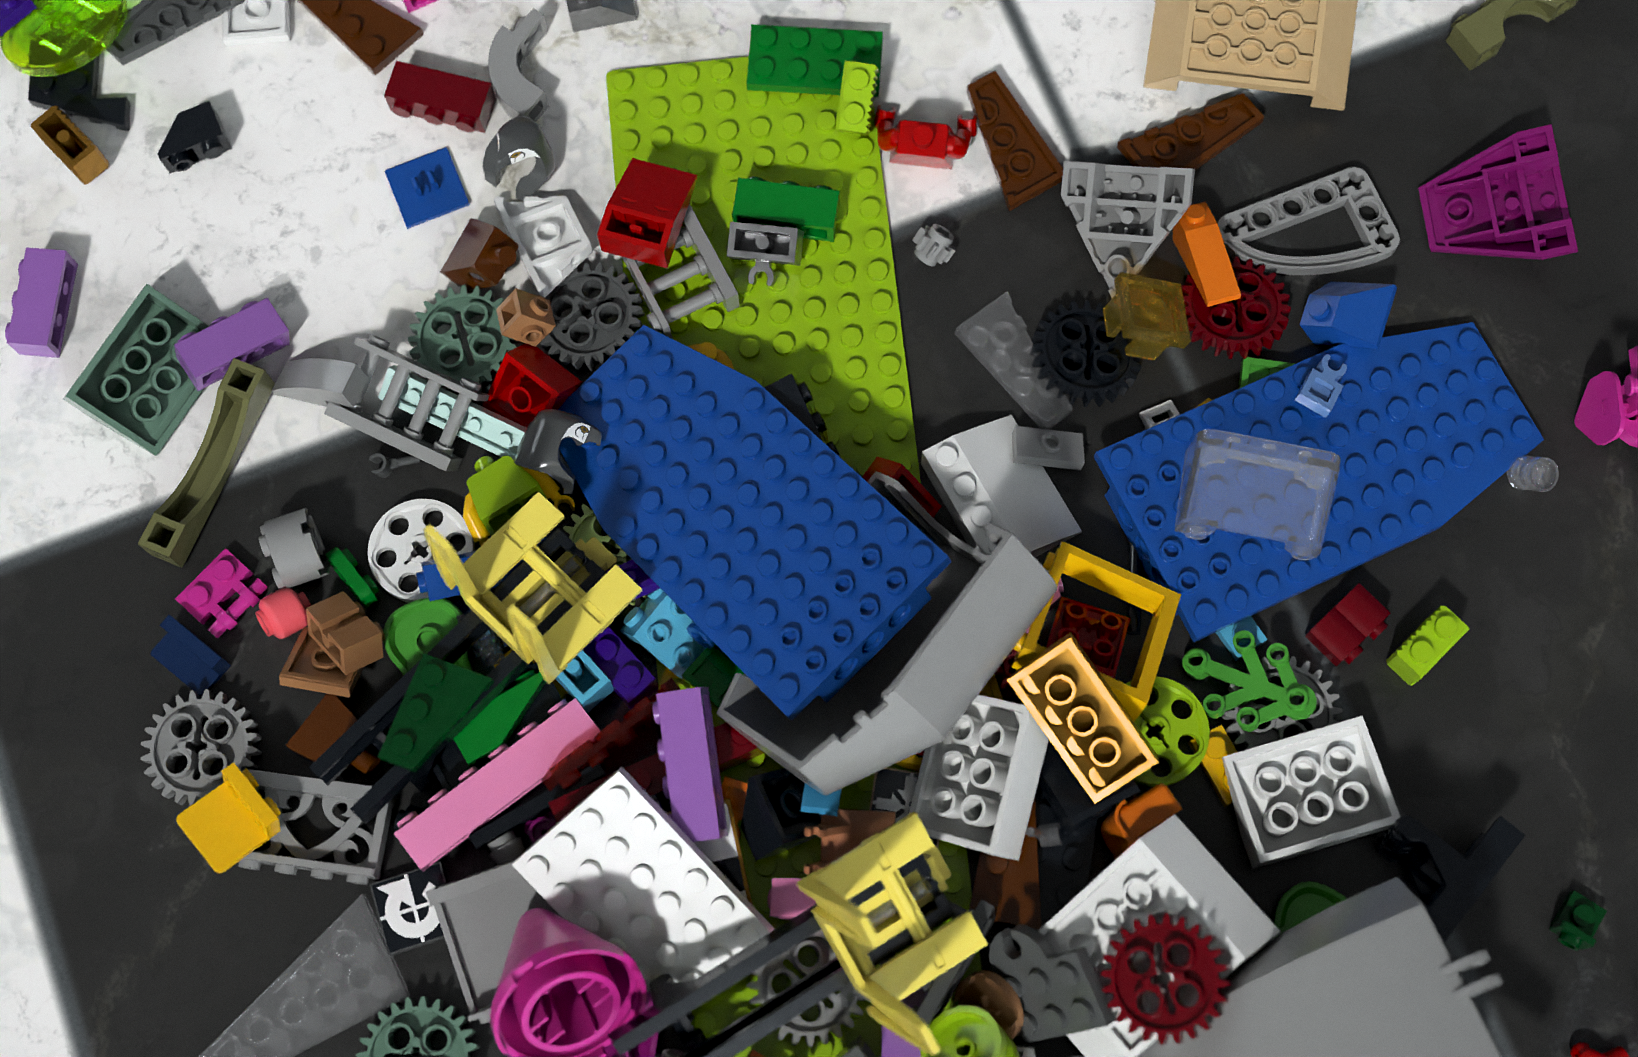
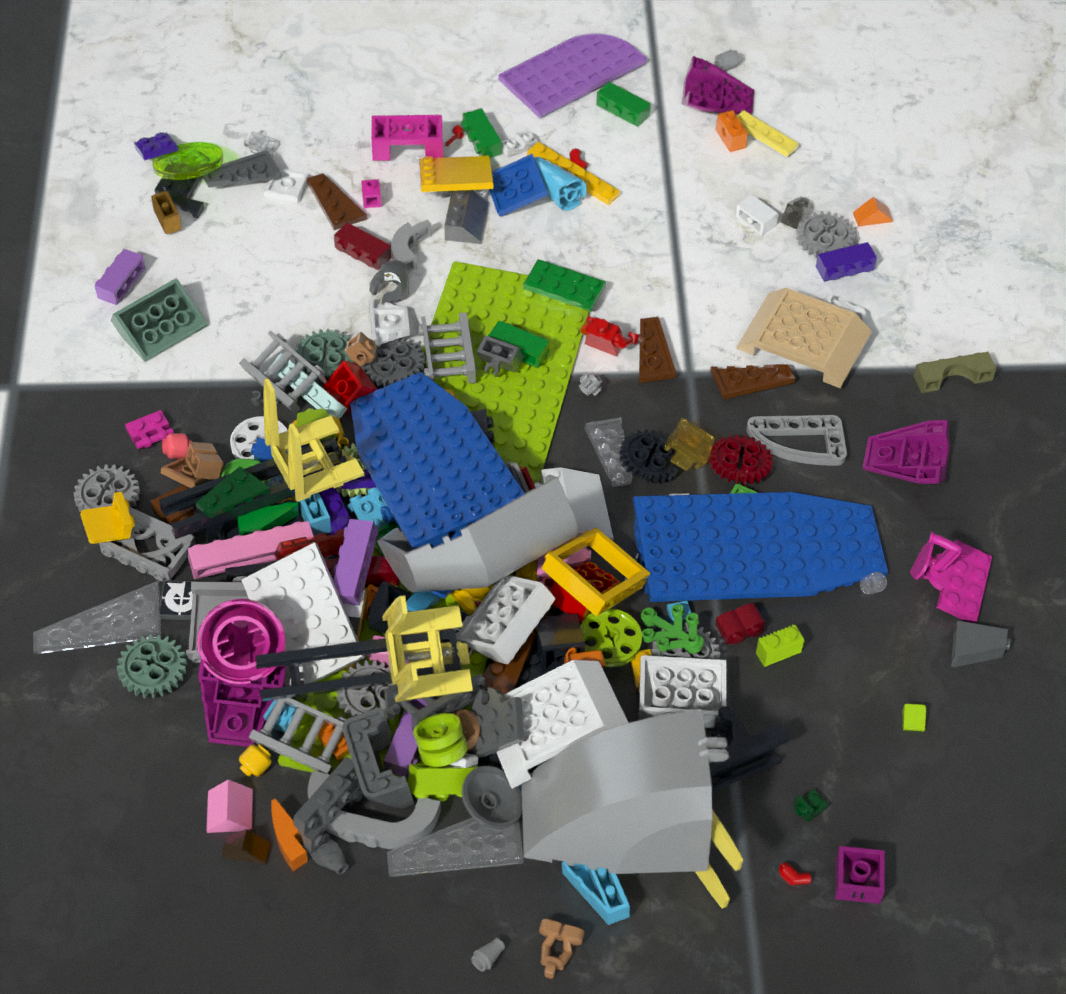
camera: 15 degrees right, 20 degrees down
(182, 516) = (143, 389): olive arch -> none
(189, 657) = (120, 451): dark blue panel -> none
(193, 138) = (228, 228): black slope -> none
(244, 336) = (206, 320): medium lavender brick -> none
(294, 547) = (196, 416): light grey brick -> none
(321, 381) = (244, 347): light grey slope -> none
(344, 565) = (217, 436): green plate -> none
(427, 188) = (337, 285): blue piece -> none
(480, 256) = (353, 316): reddish brown torso -> none
(542, 441) = (344, 403): dark grey piece -> none
(646, 213) = (442, 319): red slope -> none
(856, 98) = (577, 303): lime brick -> none
(1047, 834) = (530, 665): clear hand -> none
(1048, 448) = (611, 493): light grey plate -> none
(1083, 718) = (567, 596): pearl gold slope -> none
(1124, 211) = (698, 395): light grey wedge -> none
(1130, 985) = (557, 723): dark red gear -> none
(1205, 255) = (733, 426): orange slope -> none
(1257, 490) = (712, 532): clear windscreen -> none
(1321, 387) = (769, 504): medium blue plate -> none
(1348, 314) = (799, 478): blue slope -> none

